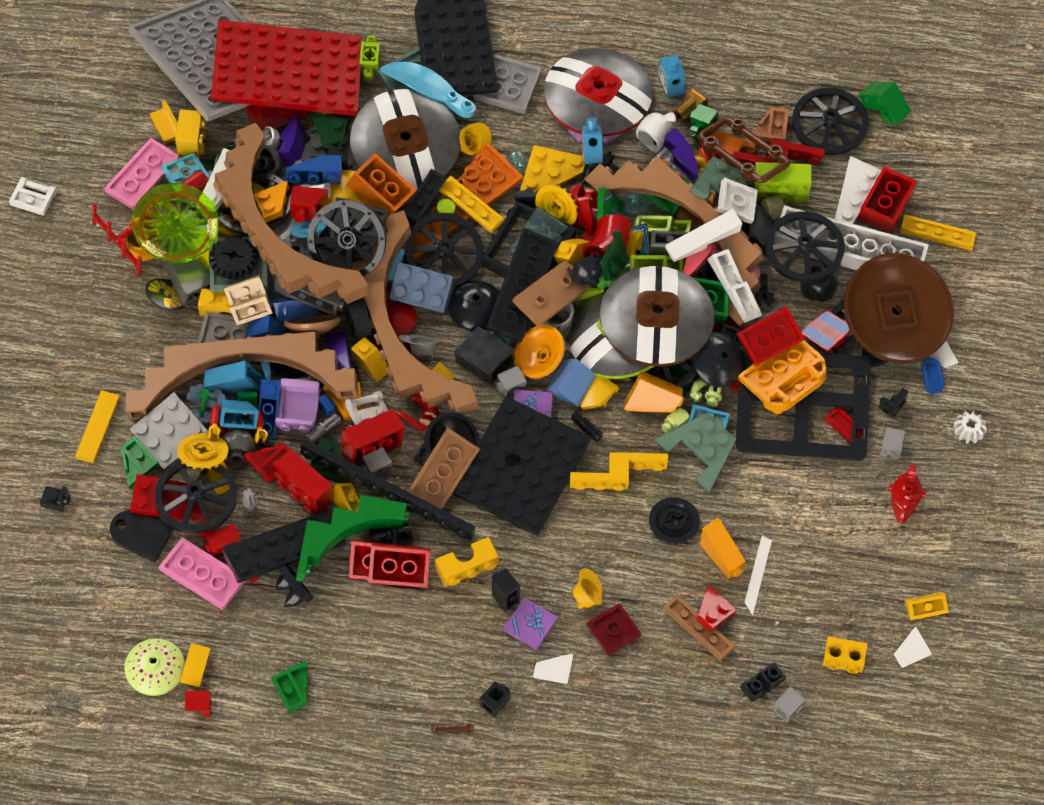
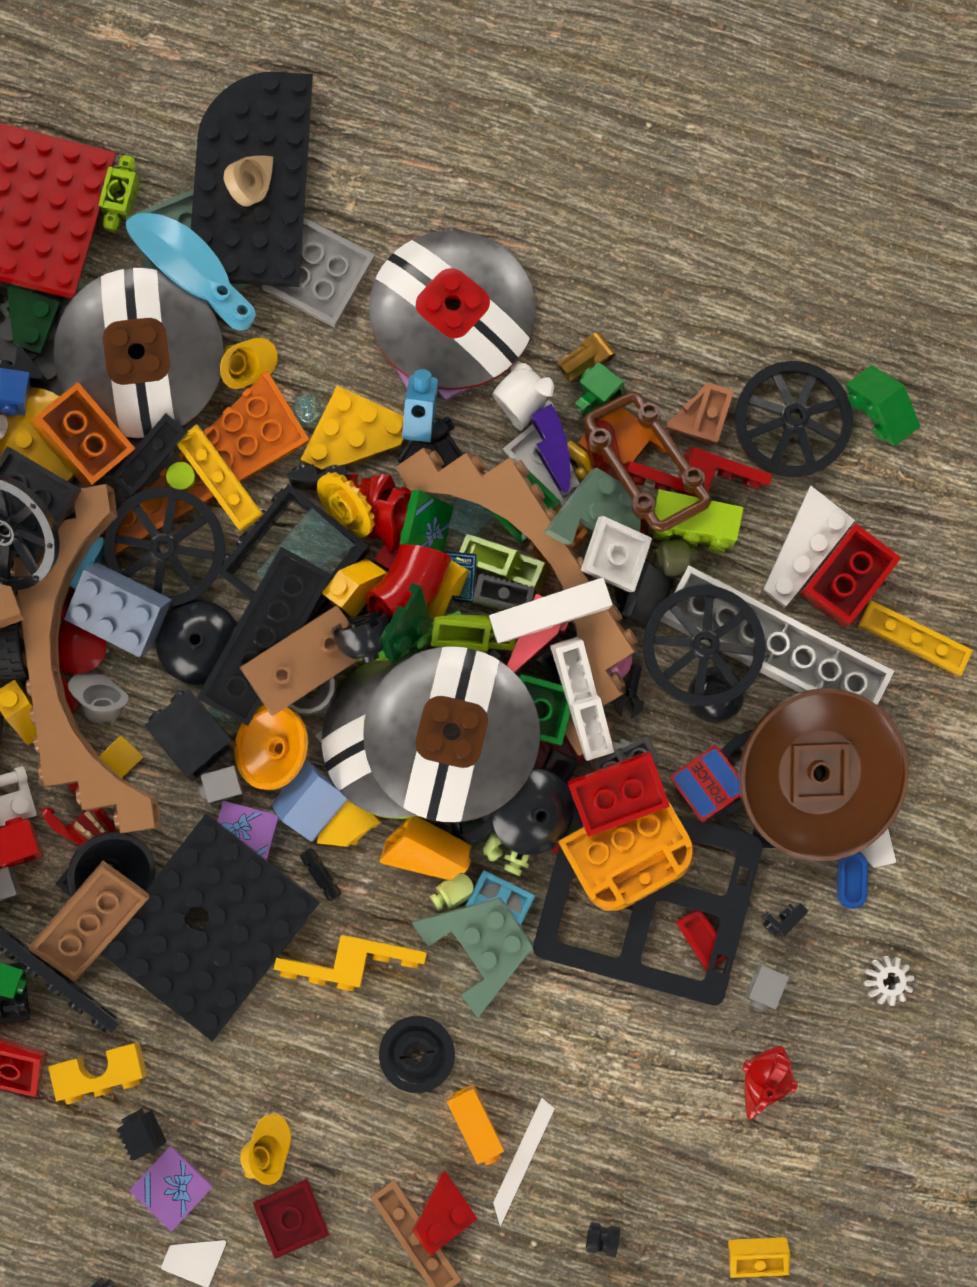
camera: 10 degrees right, 20 degrees up
(455, 32) = (249, 179): none -> tan piece
(670, 70) = (568, 302): dark azure torso -> none
(822, 607) = (603, 1239): none -> black wheel

